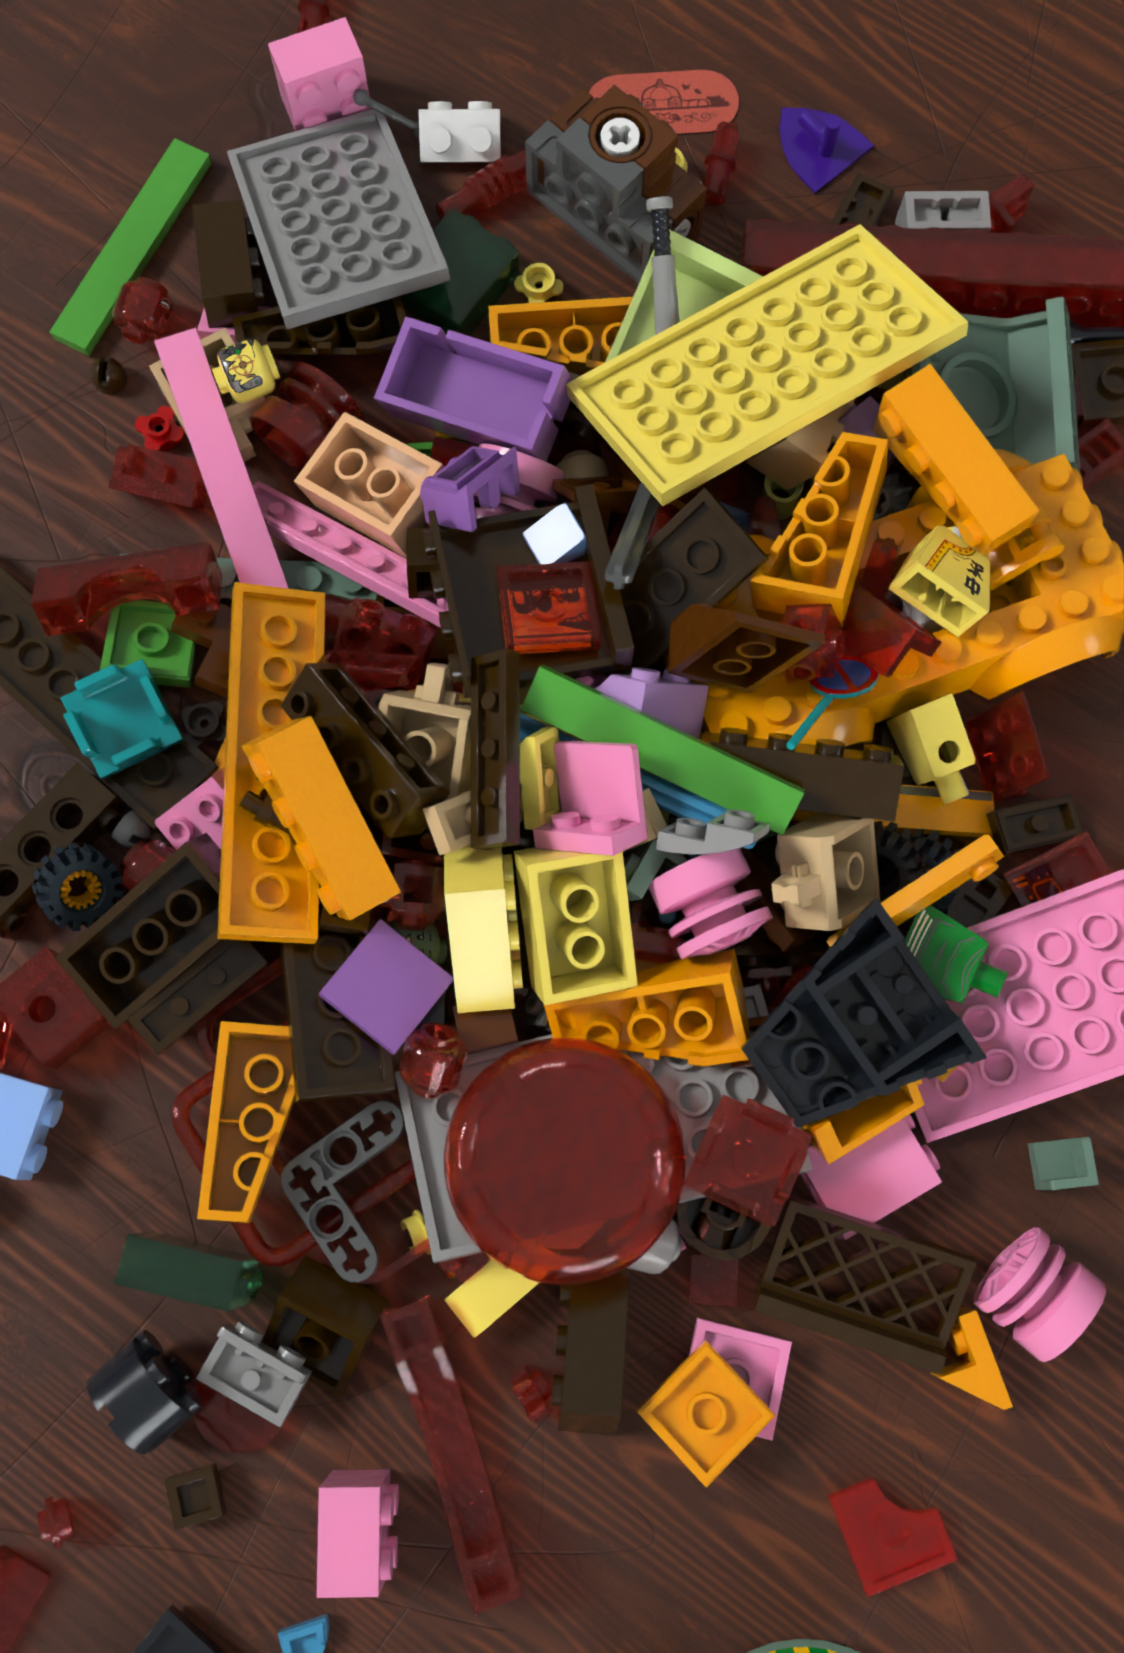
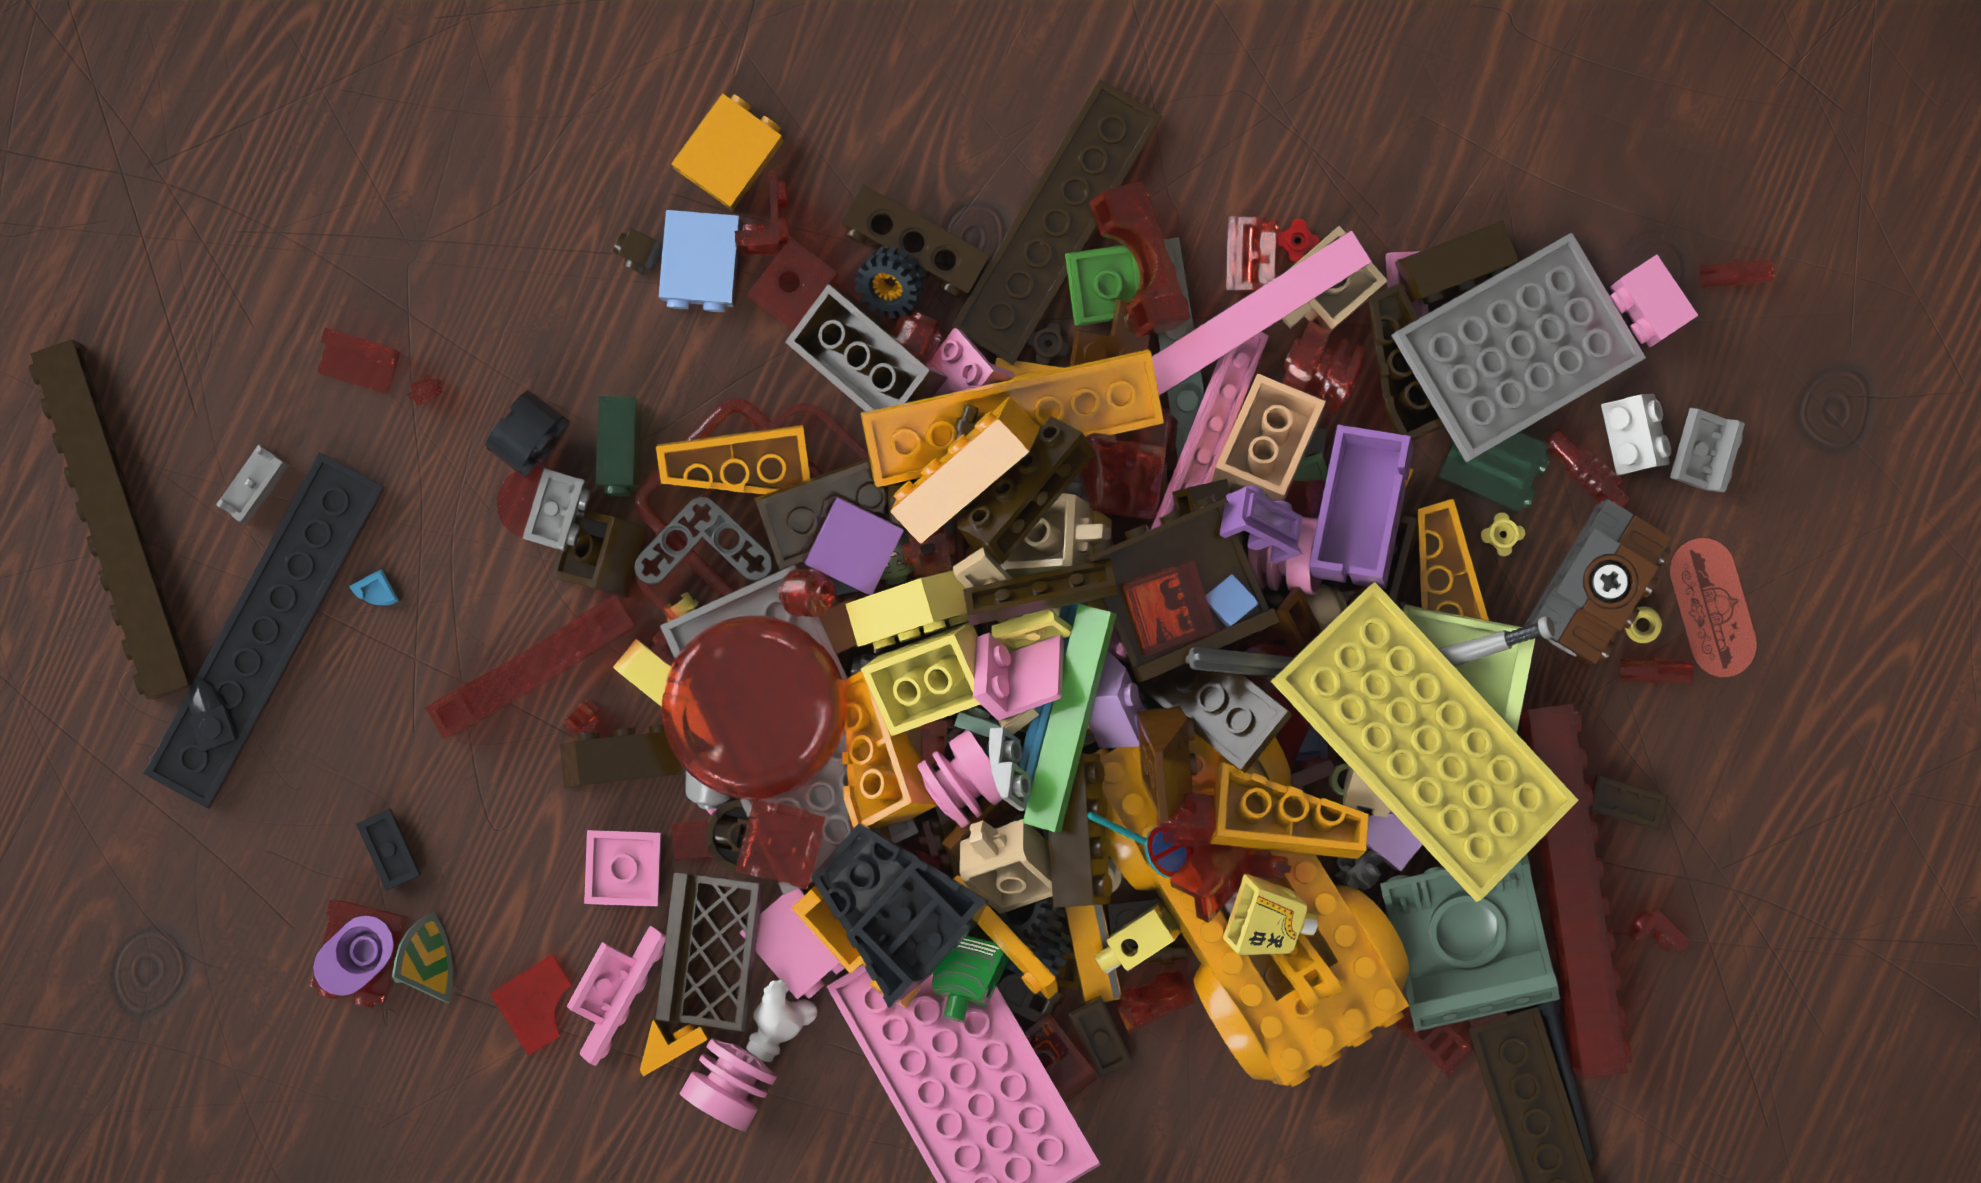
camera: 85 degrees right, 10 degrees up
(115, 375) = (1339, 190): dark brown hinge -> none
(120, 717) = (1031, 282): teal panel -> none
(131, 246) = (1467, 171): bright green tile -> none
(131, 830) = (945, 310): dark grey hinge -> none
(142, 310) = (1400, 200): clear red head -> none
(195, 1496) = (461, 486): dark brown plate -> none
(197, 993) = (821, 397): dark brown plate -> none
(246, 370) = (1344, 311): light yellow head -> none
(354, 1531) = (462, 610): bright pink brick -> none
(362, 98) = (1638, 342): dark grey hinge -> none
(496, 65) = (1707, 451): none -> light grey bracket
(705, 1413) = (594, 849): light orange plate -> none
(819, 145) = (1700, 757): dark purple shield -> none
(888, 1426) = (610, 989): none -> bright pink bracket
(945, 210) = (1628, 877): light grey brick -> none
(953, 461) = (1360, 908): light orange wedge -> none
(964, 1213) = (778, 1020): none -> white animal
(1063, 1164) = (831, 1093): sand green panel -> none

